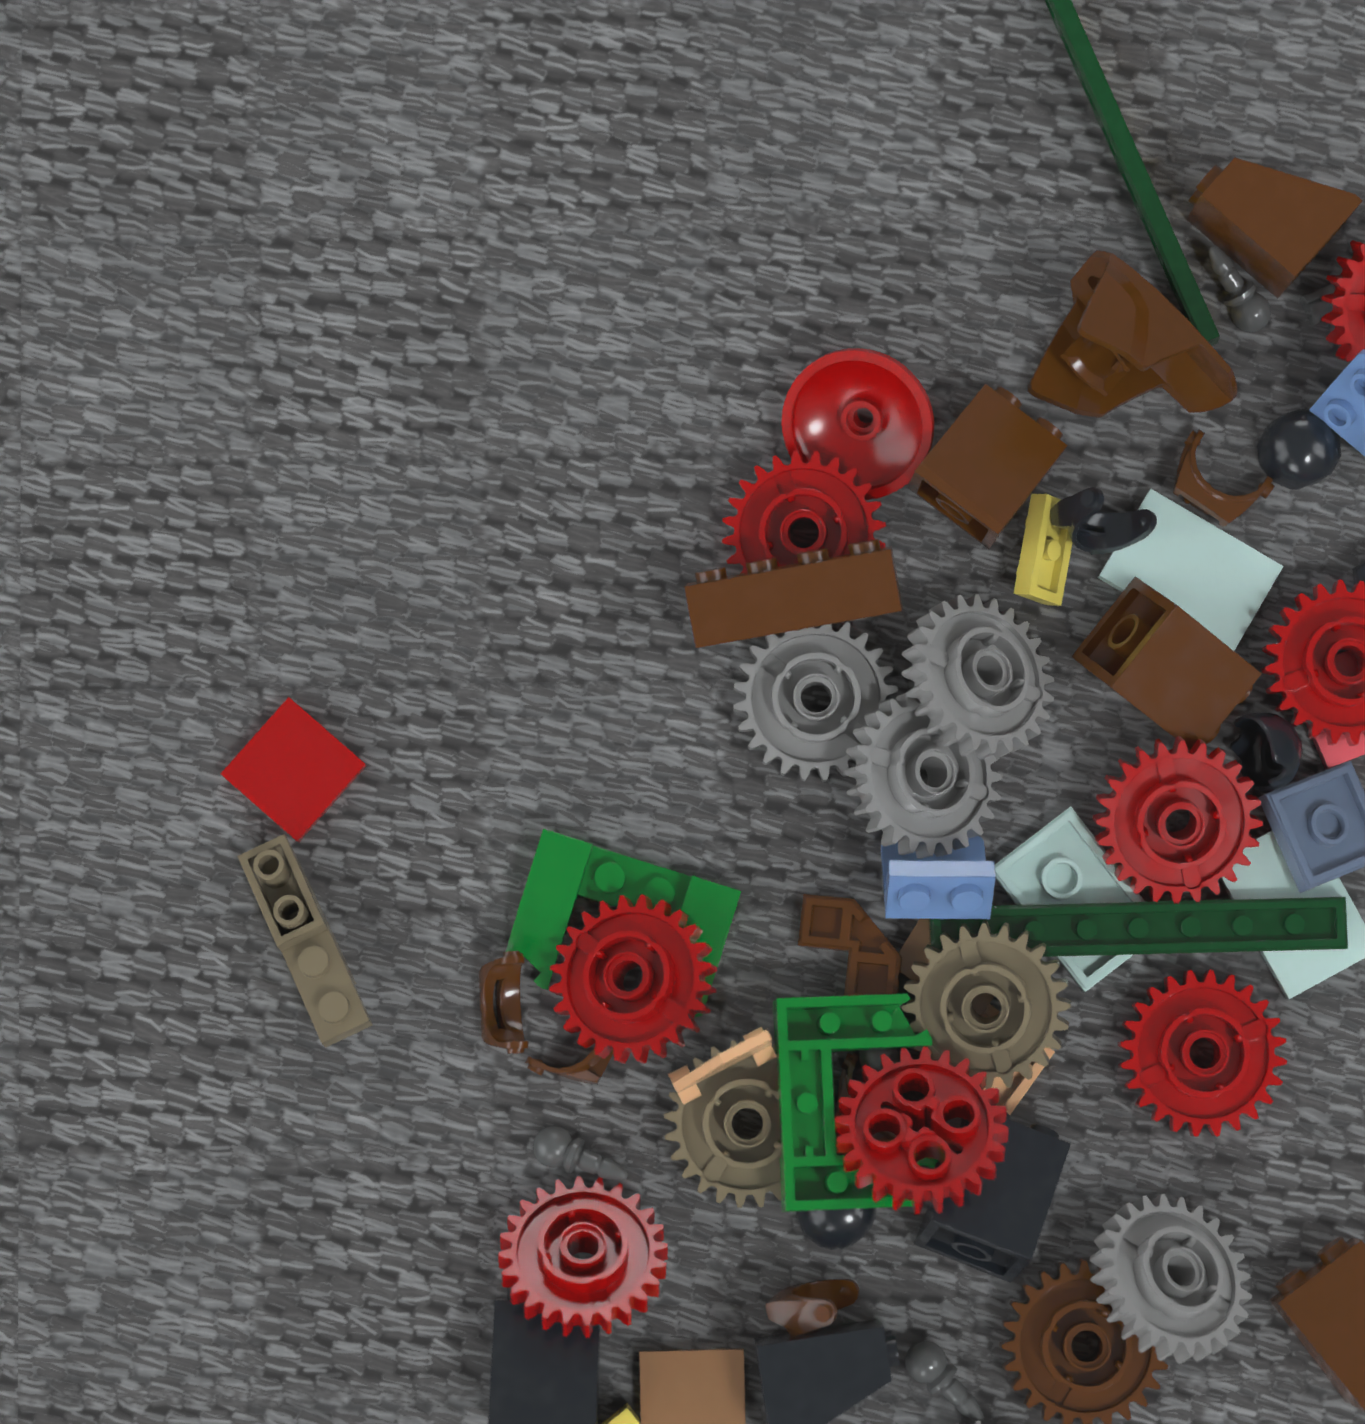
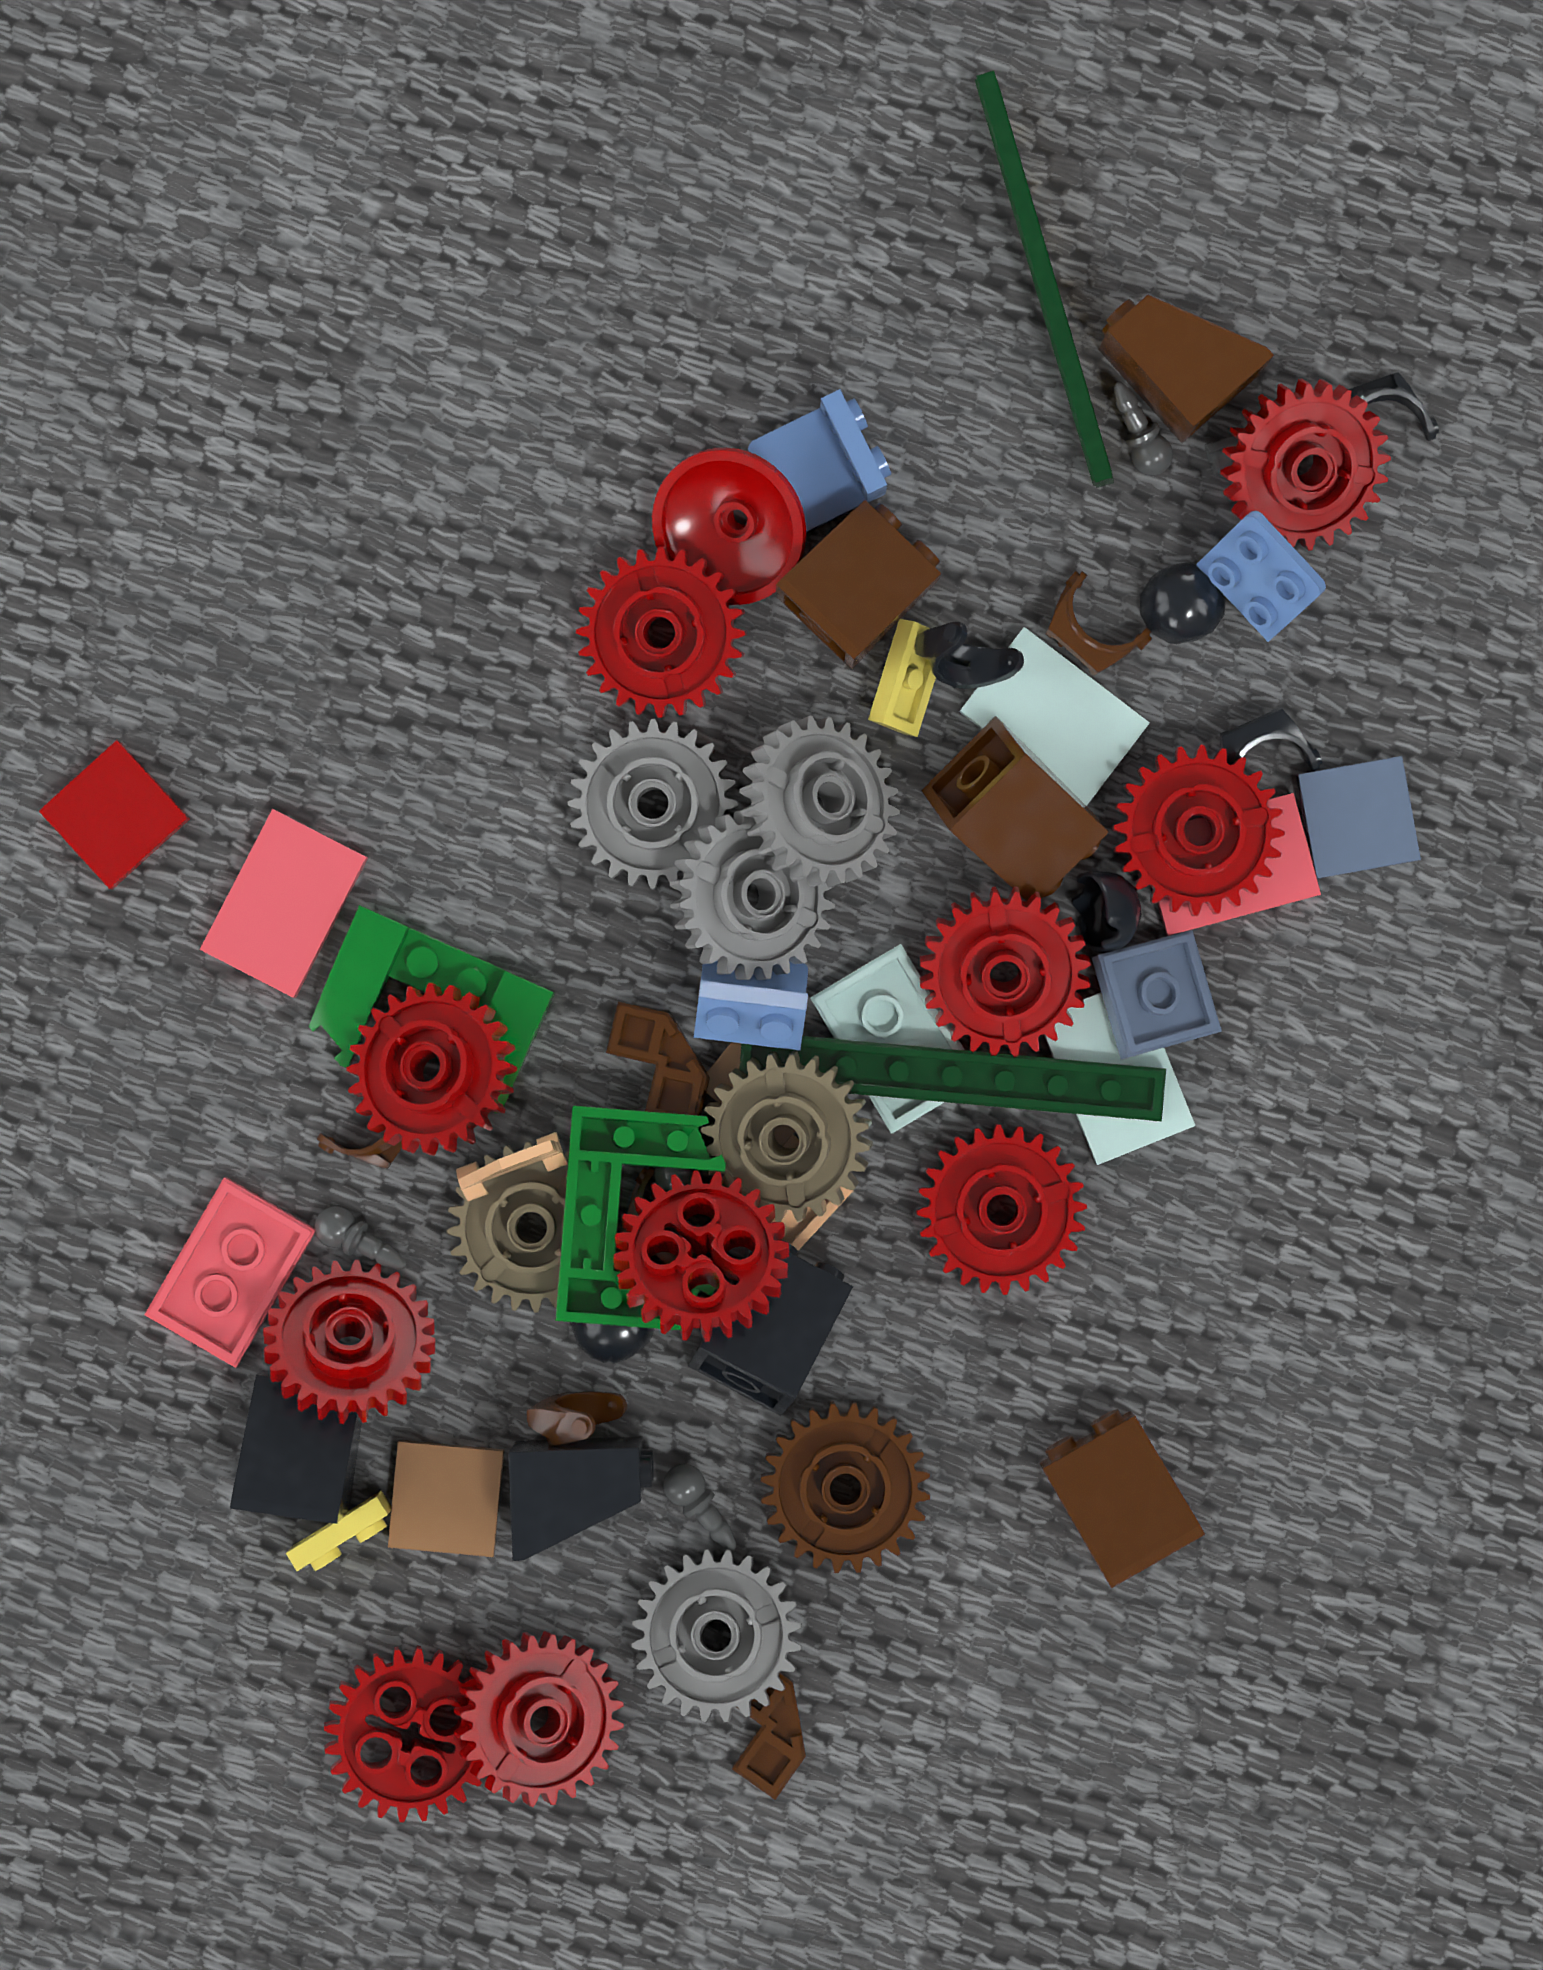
camera: 10 degrees right, 5 degrees up
(305, 940) = (106, 990): dark tan slope -> none
(455, 1203) = (230, 1272): none -> coral tile
(467, 836) = (283, 903): none -> coral tile
(508, 972) = (305, 1110): reddish brown helmet -> none
(793, 596) = (639, 697): reddish brown brick -> none
(945, 349) = (827, 459): none -> medium blue bracket
(1125, 343) = (1013, 476): reddish brown piece -> none
(1181, 1315) = (901, 1434): light grey gear -> none

